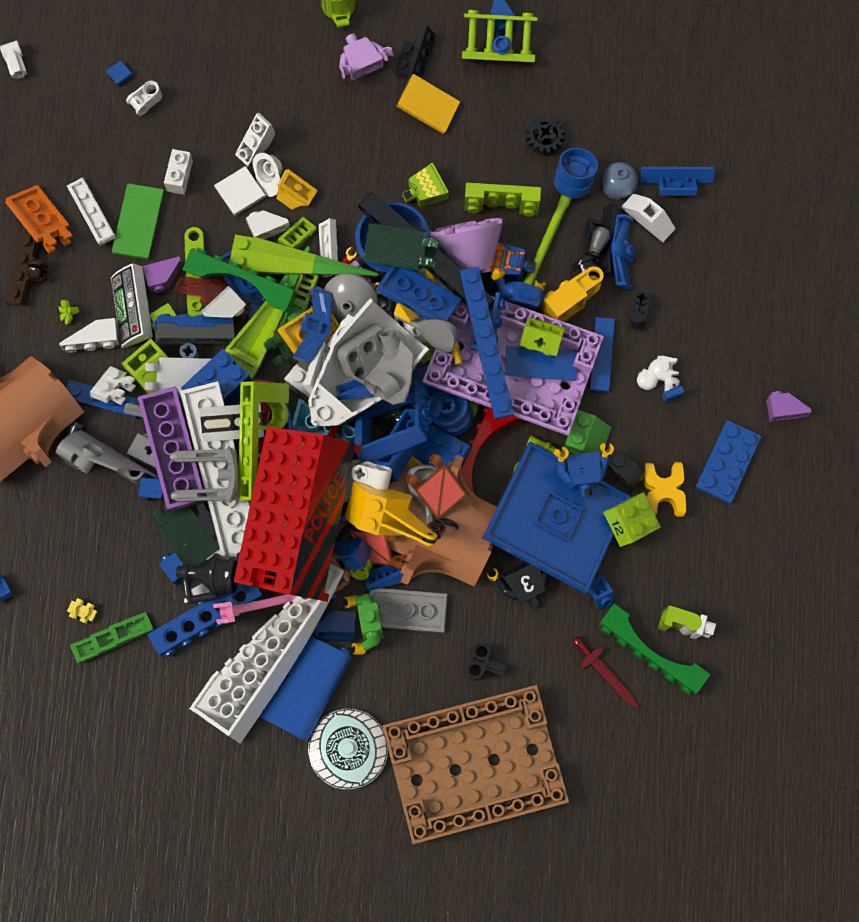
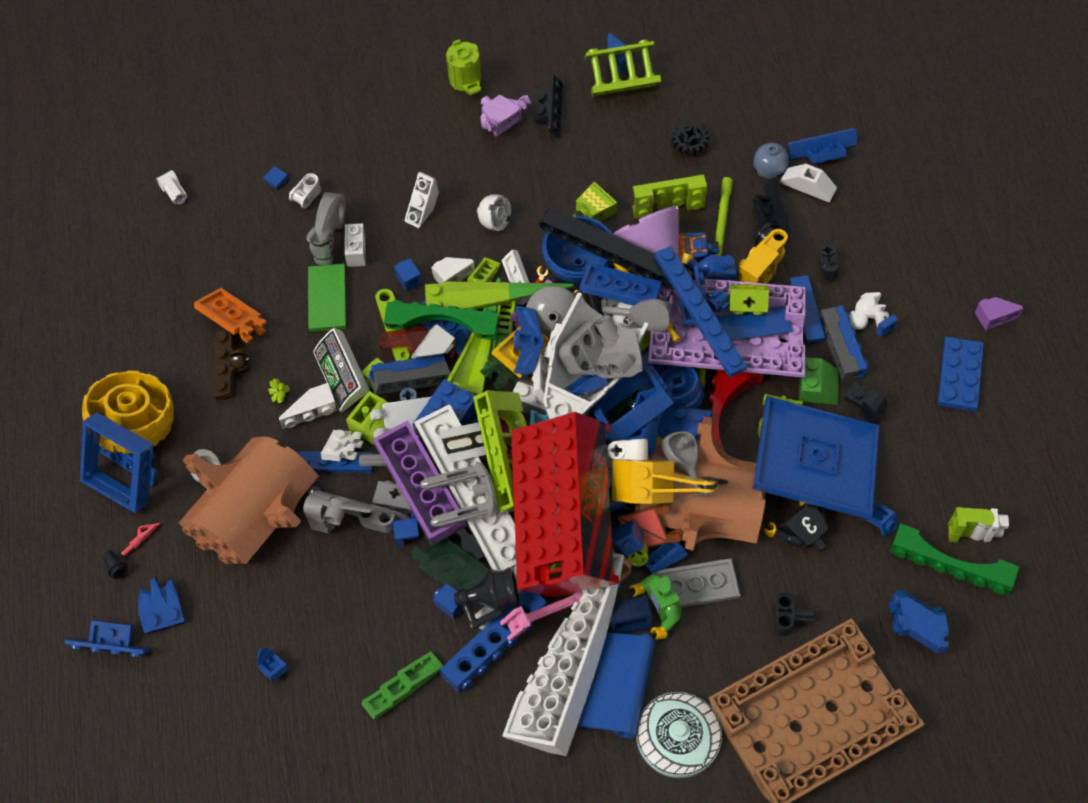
camera: 10 degrees left, 15 degrees down
(85, 612) = (367, 668): light yellow piece -> none
(91, 211) = (279, 298): white tile -> none
(158, 138) = (328, 219): none -> light grey animal
(162, 274) = (363, 336): medium lavender slope -> none
(222, 217) = (408, 274): none -> blue brick
(239, 191) = (419, 248): white tile -> none
(267, 172) = (440, 226): white piece -> none
(294, 190) = (470, 235): yellow slope -> none
(324, 170) = (494, 212): none -> white cylinder
(398, 247) = (589, 247): clear green tile -> none
(405, 313) = (613, 303): yellow slope -> none
(428, 104) = (574, 136): yellow tile -> none
(439, 490) = (697, 450): flag -> none
(501, 44) = (627, 72): blue plate -> none
(511, 331) = (718, 301): none -> blue gear
(575, 172) = (730, 160): blue wheel -> none
(583, 470) = (827, 407): blue torso -> none
(593, 658) = (896, 584): dark red sword -> none
(598, 702) = (919, 621): none -> blue brick
(599, 240) = (771, 209): flat silver cone -> none
(622, 251) = (795, 216): blue plate -> none
(624, 402) = (843, 344): none -> dark grey piece
(632, 519) = (889, 442): lime brick -> none
(665, 488) = (910, 411): yellow piece -> none

